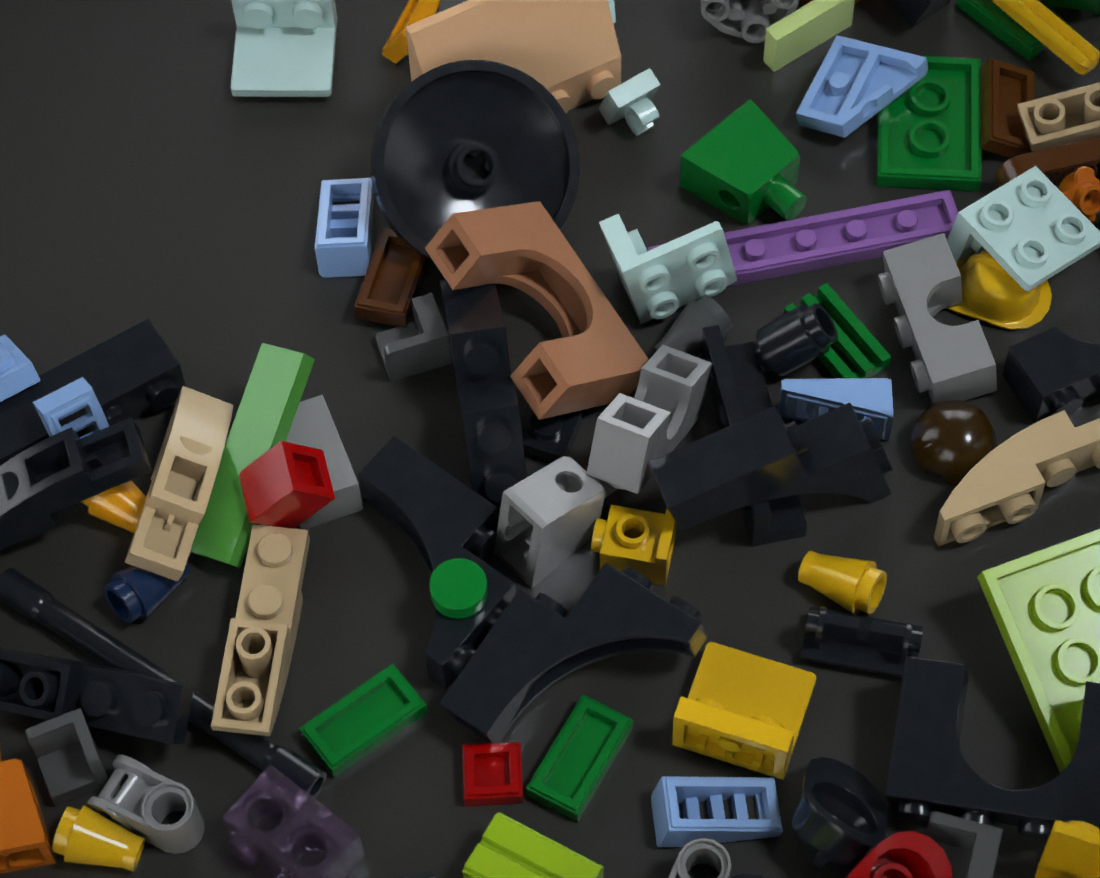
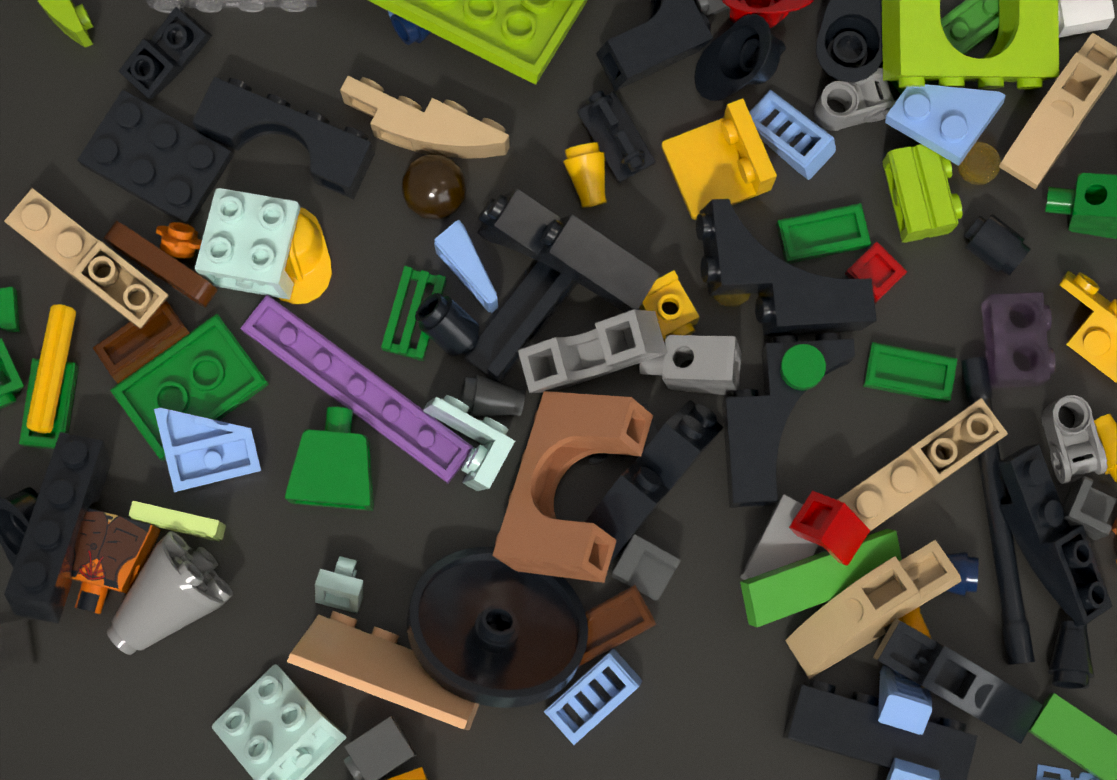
camera: 135 degrees left, 20 degrees up
(949, 359) = (338, 286): light grey arch -> none

